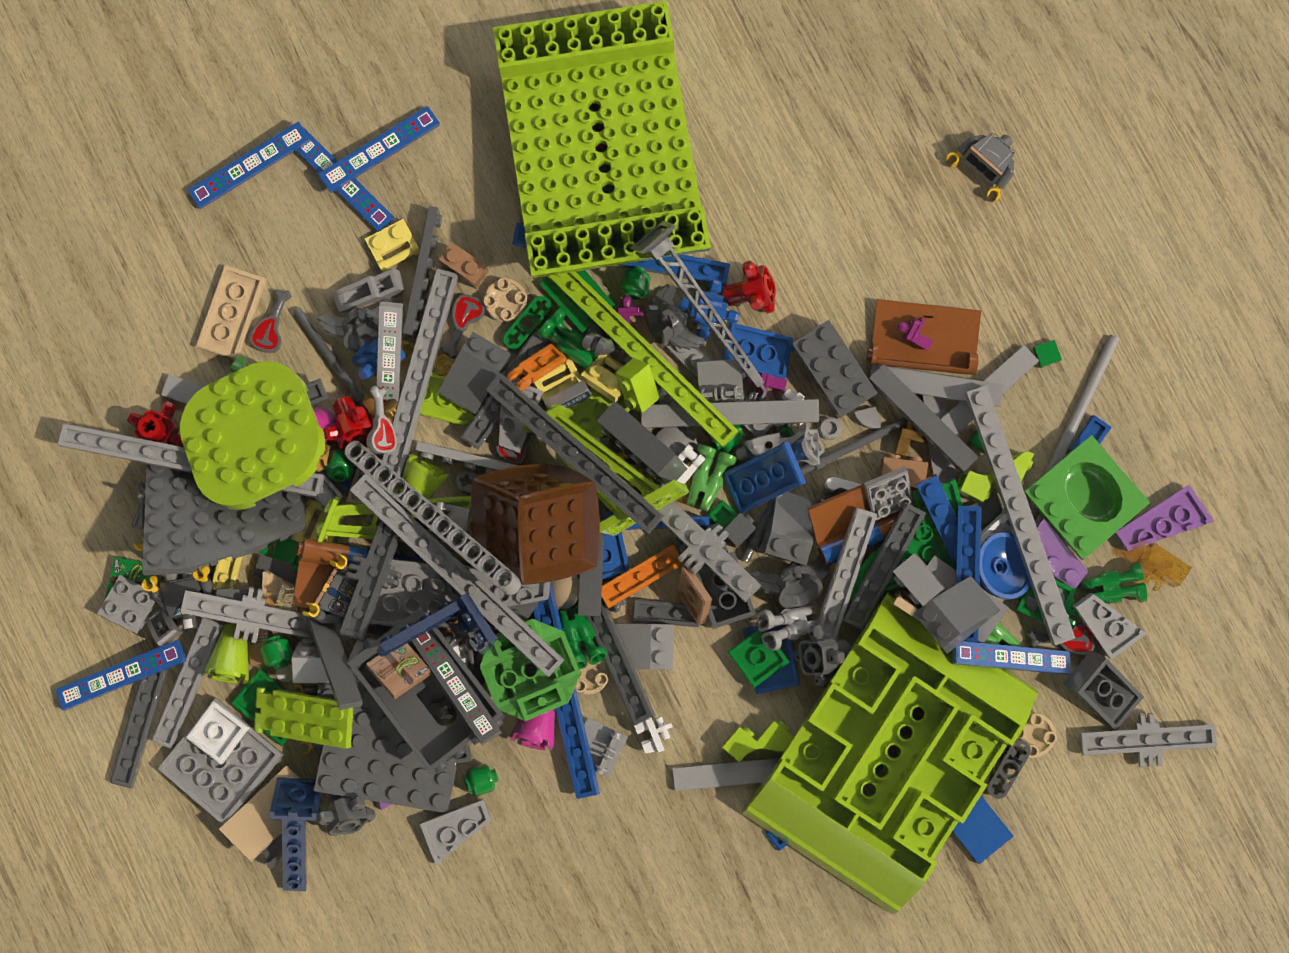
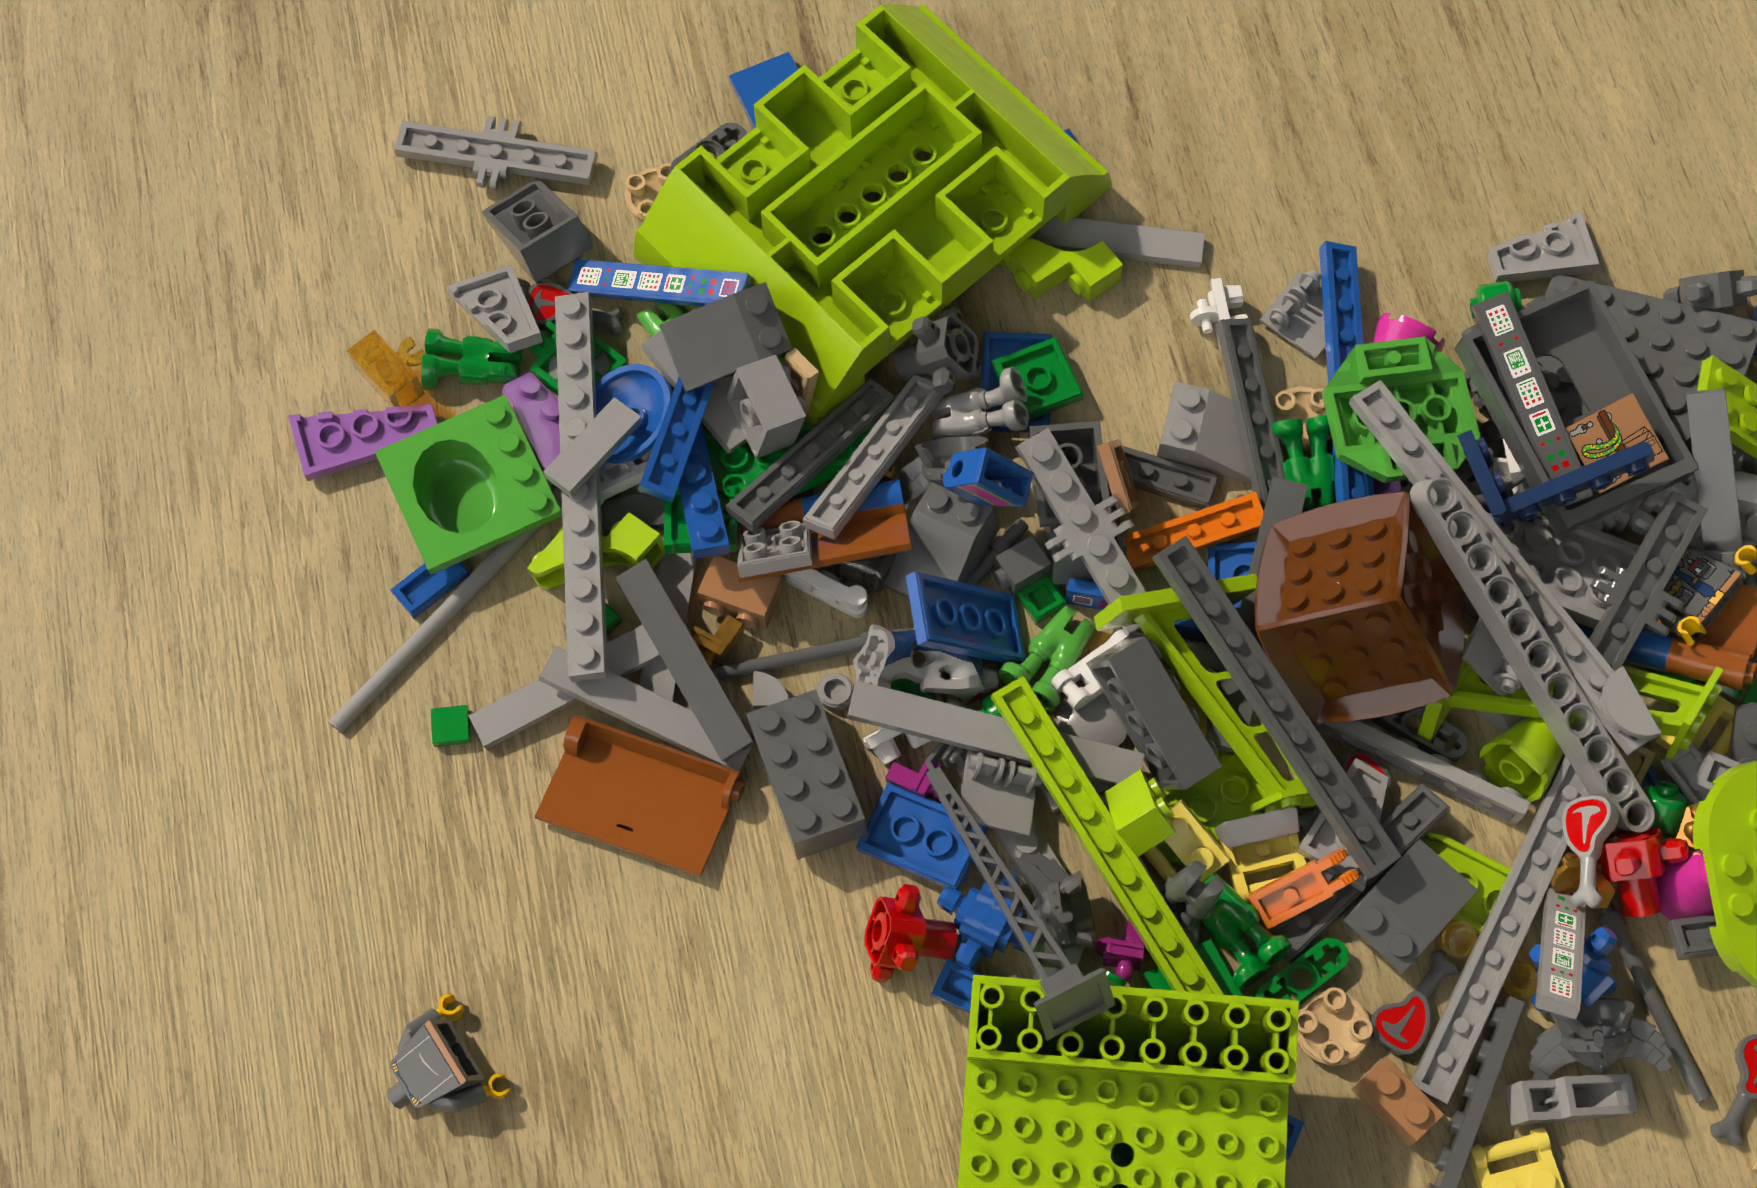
camera: 160 degrees left, 15 degrees down
(373, 495) = (1625, 708): none -> light grey tile
(782, 559) = (974, 477): none -> blue torso
(912, 333) = (658, 800): magenta piece -> none
(1017, 532) = (592, 447): none -> light grey tile

